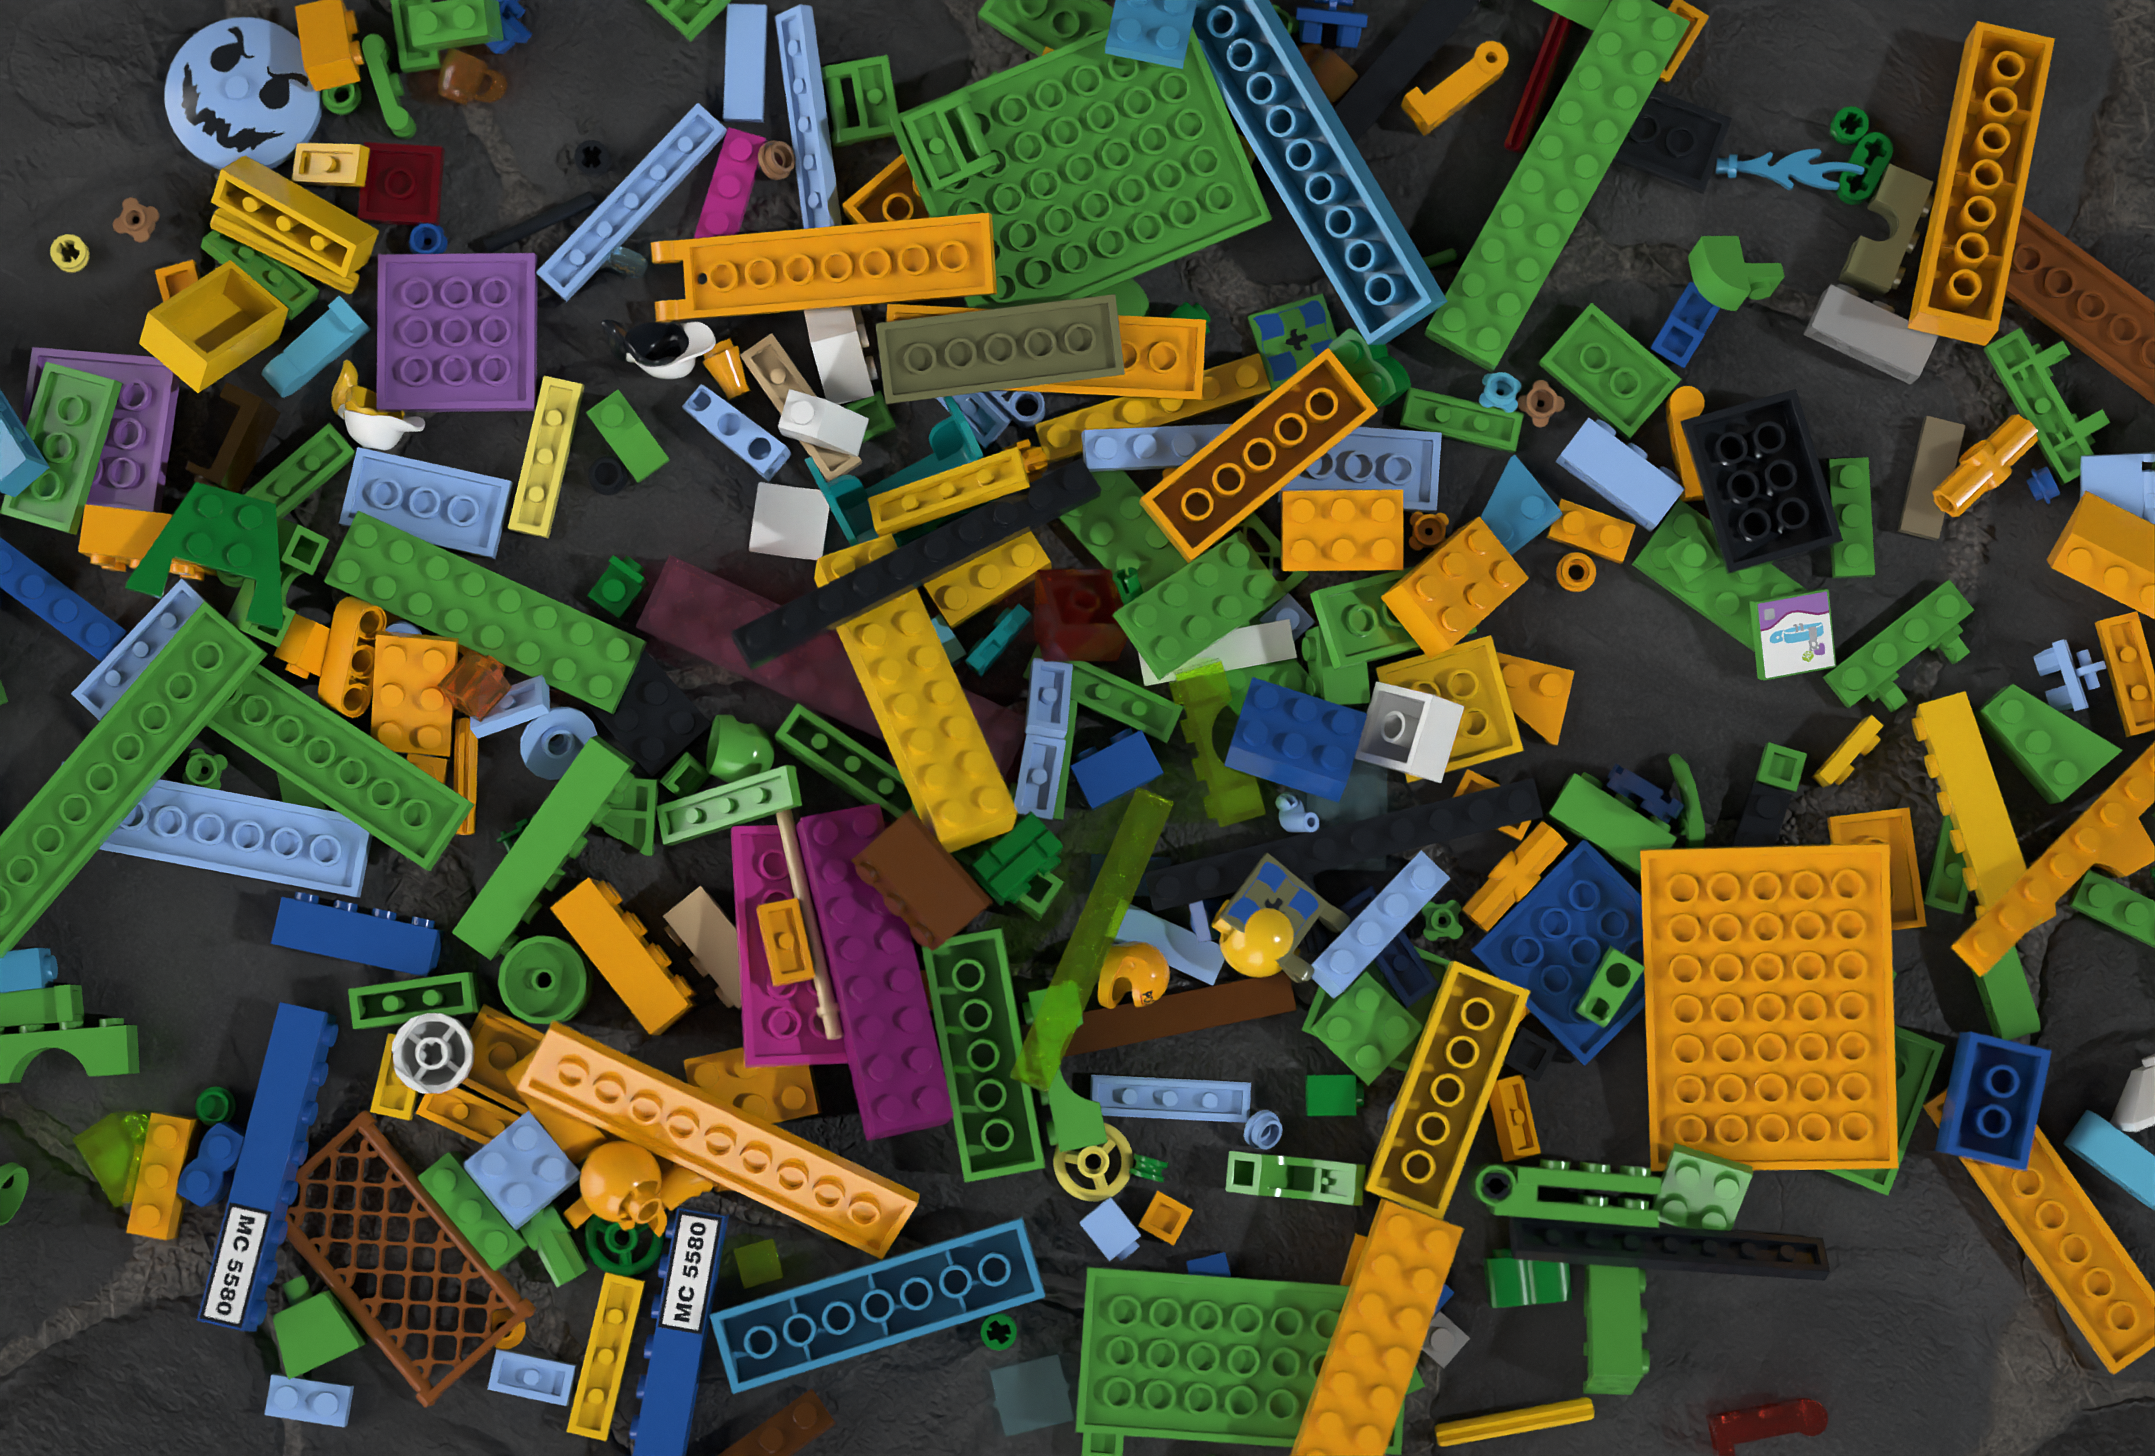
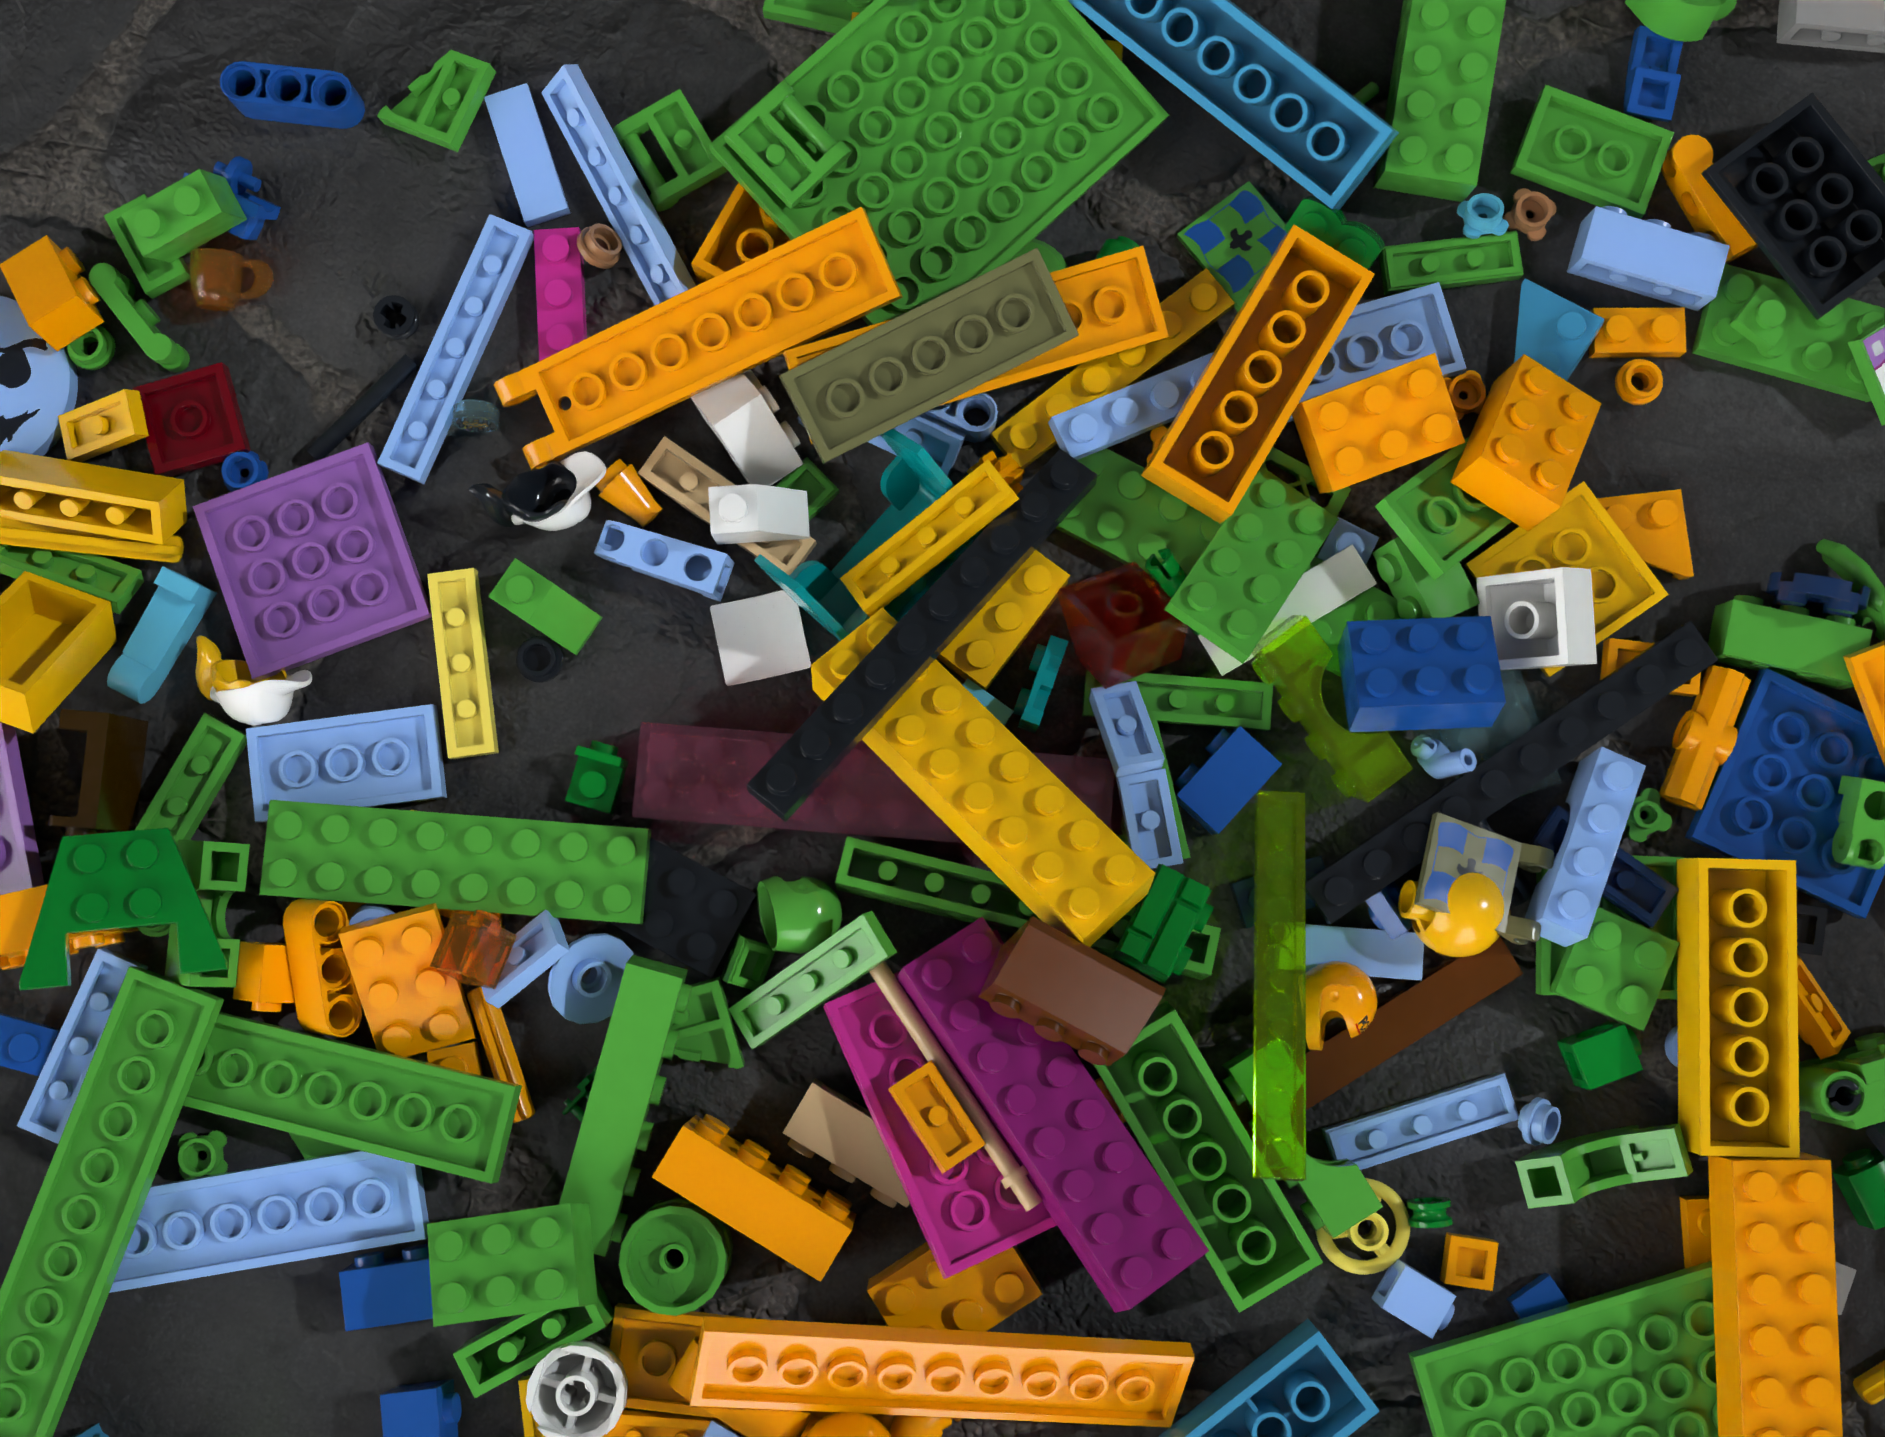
camera: 25 degrees left, 0 degrees up
(419, 935) = (511, 1263): none -> bright green brick

